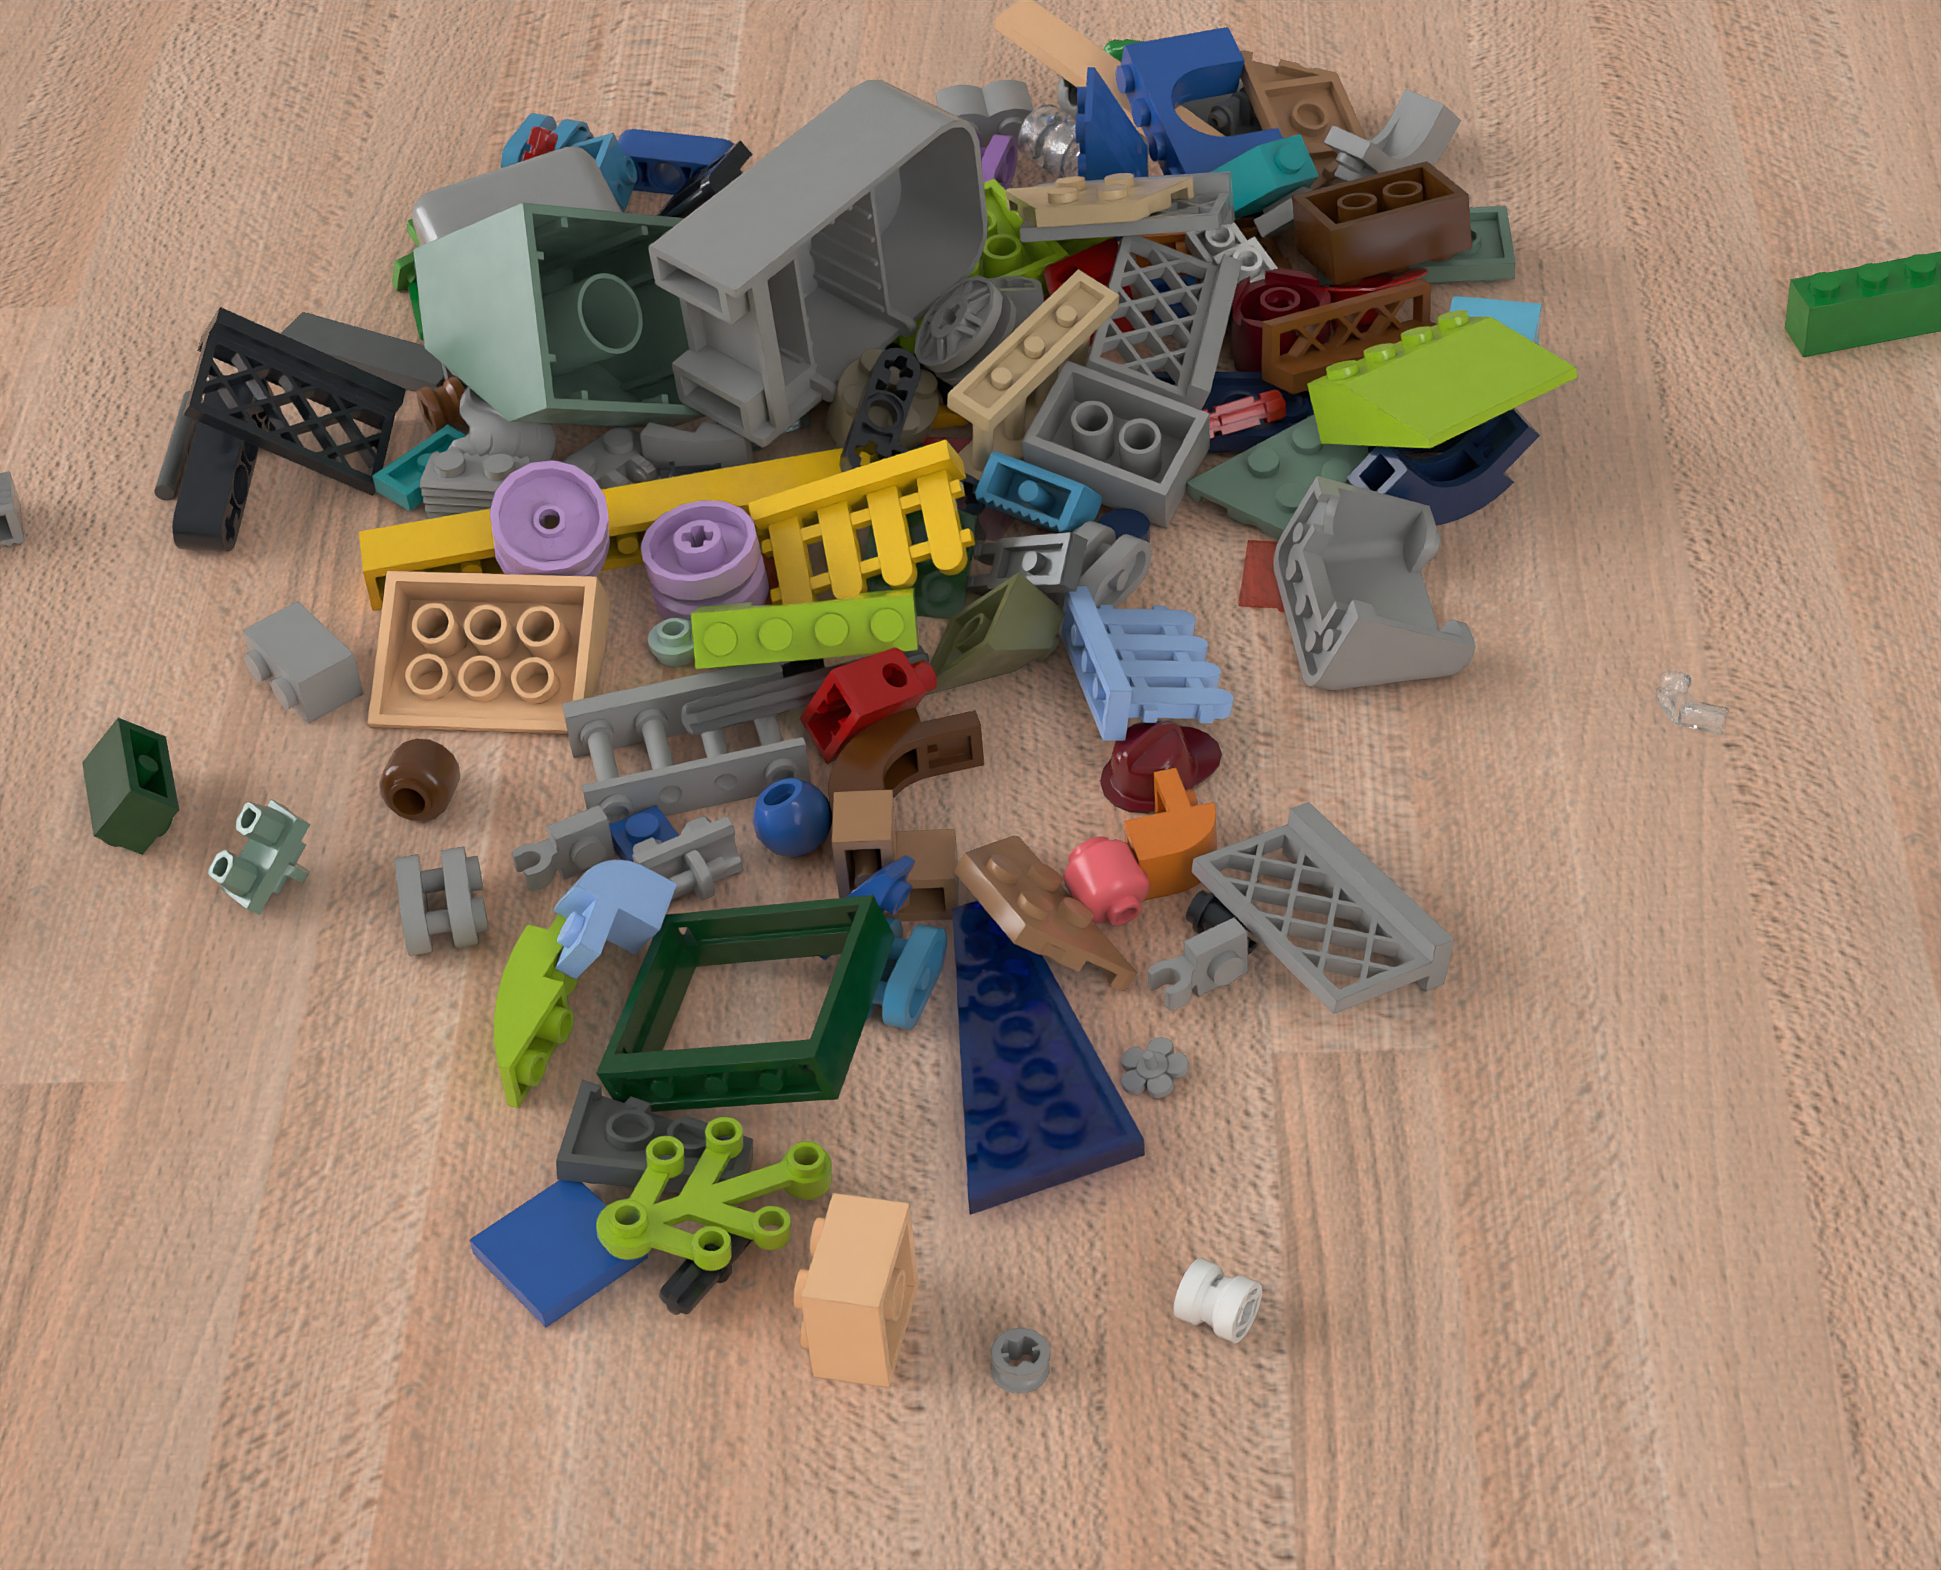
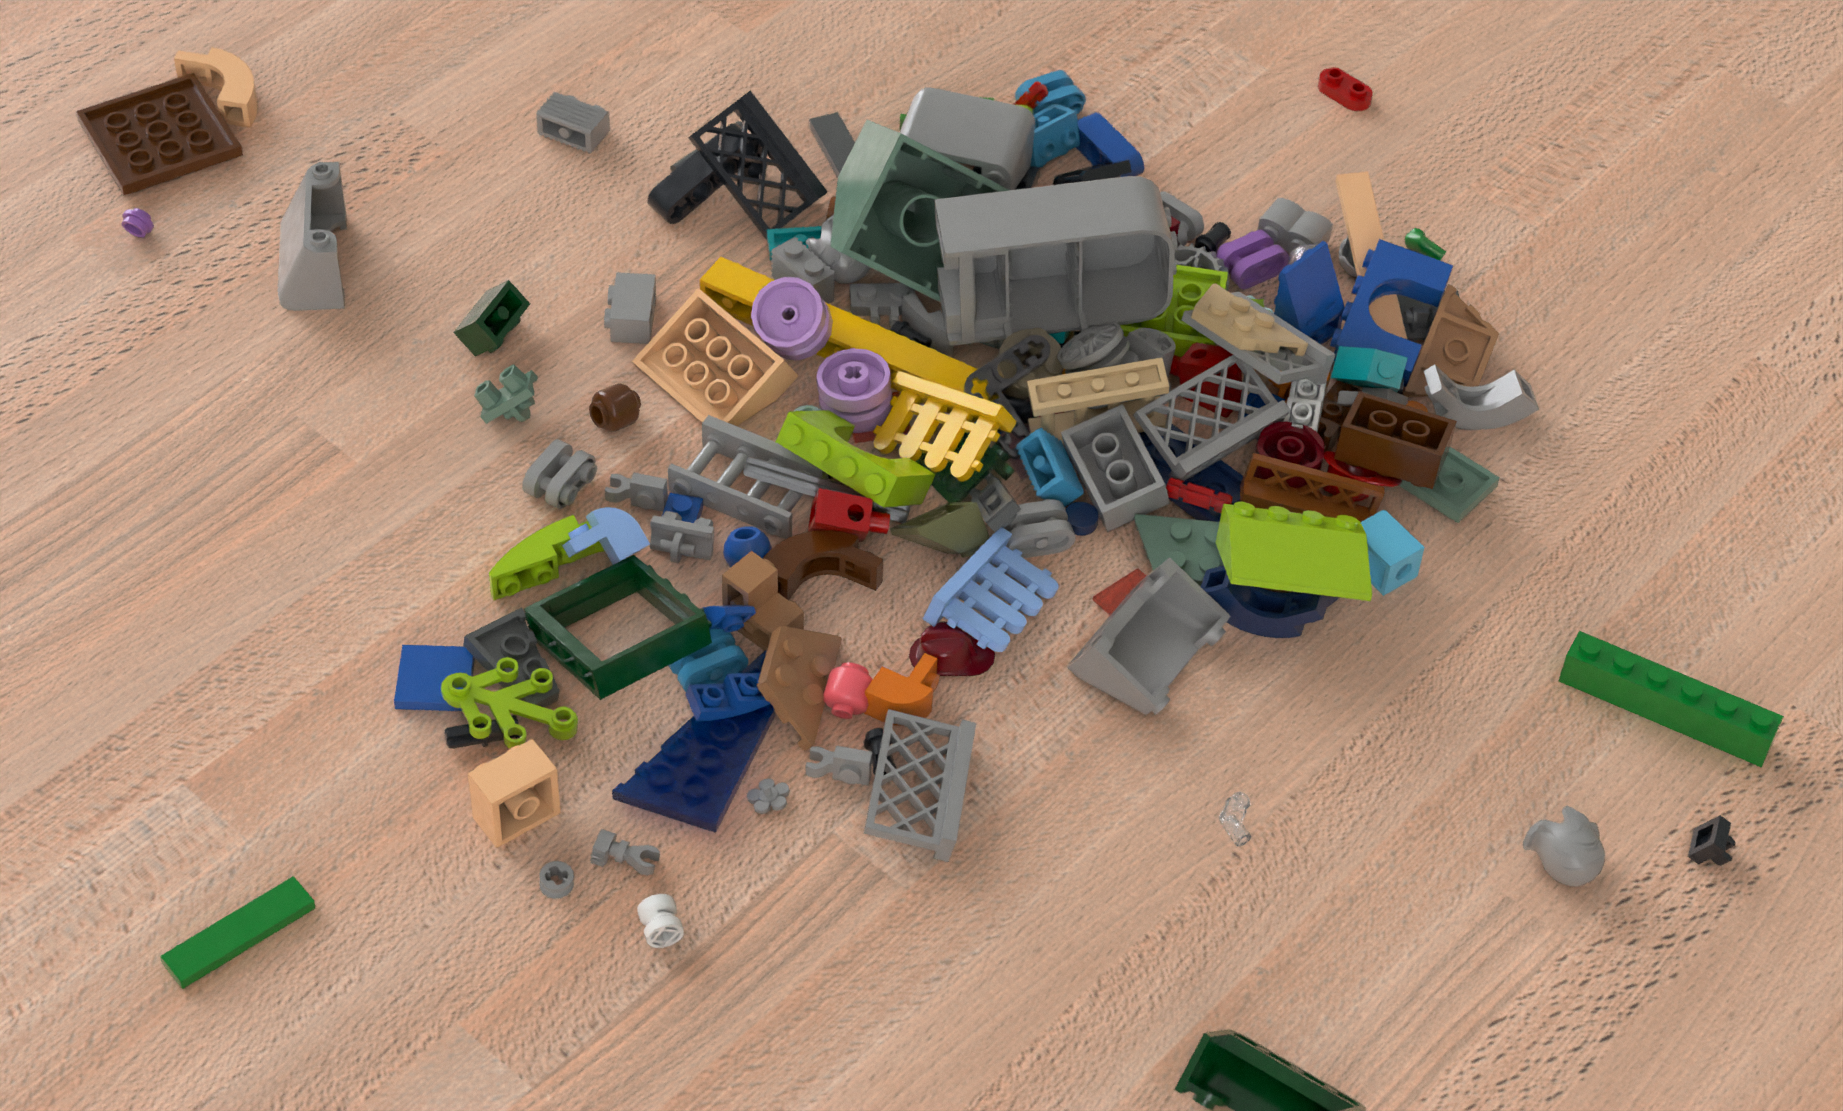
camera: 35 degrees right, 5 degrees up
(984, 986) = (728, 699): none -> blue slope
(1036, 1269) = (607, 846): none -> light grey piece

